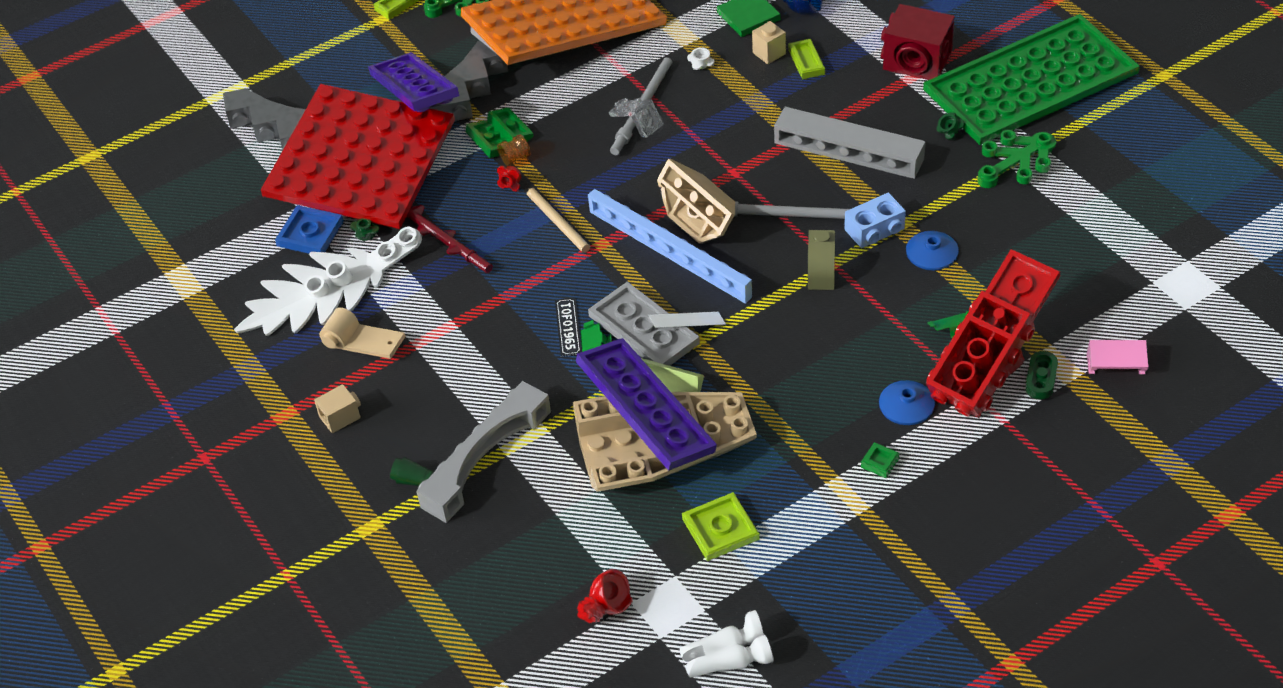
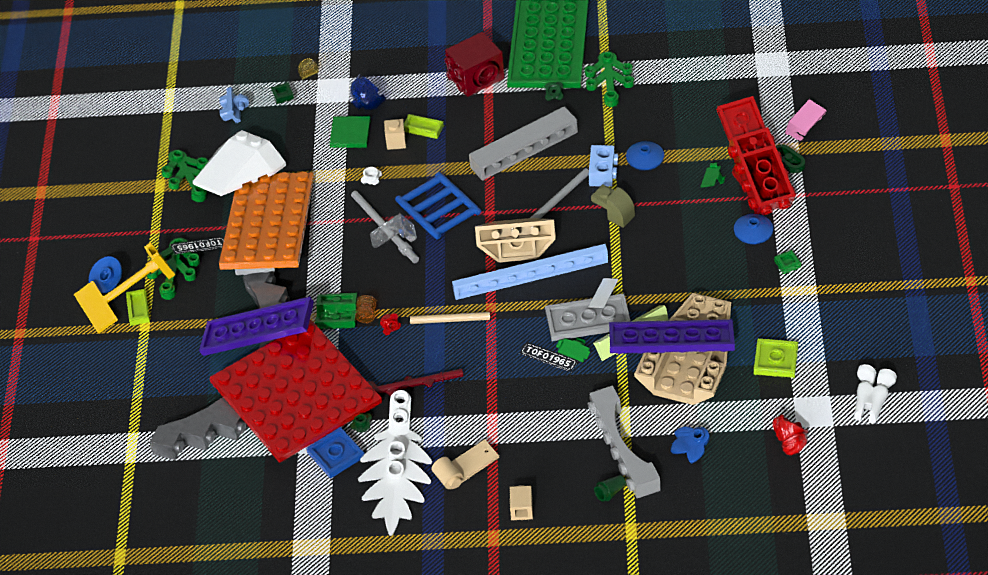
camera: 55 degrees left, 0 degrees up
(530, 512) = (688, 443): none -> blue plate
(729, 141) = (450, 188): none -> blue bar

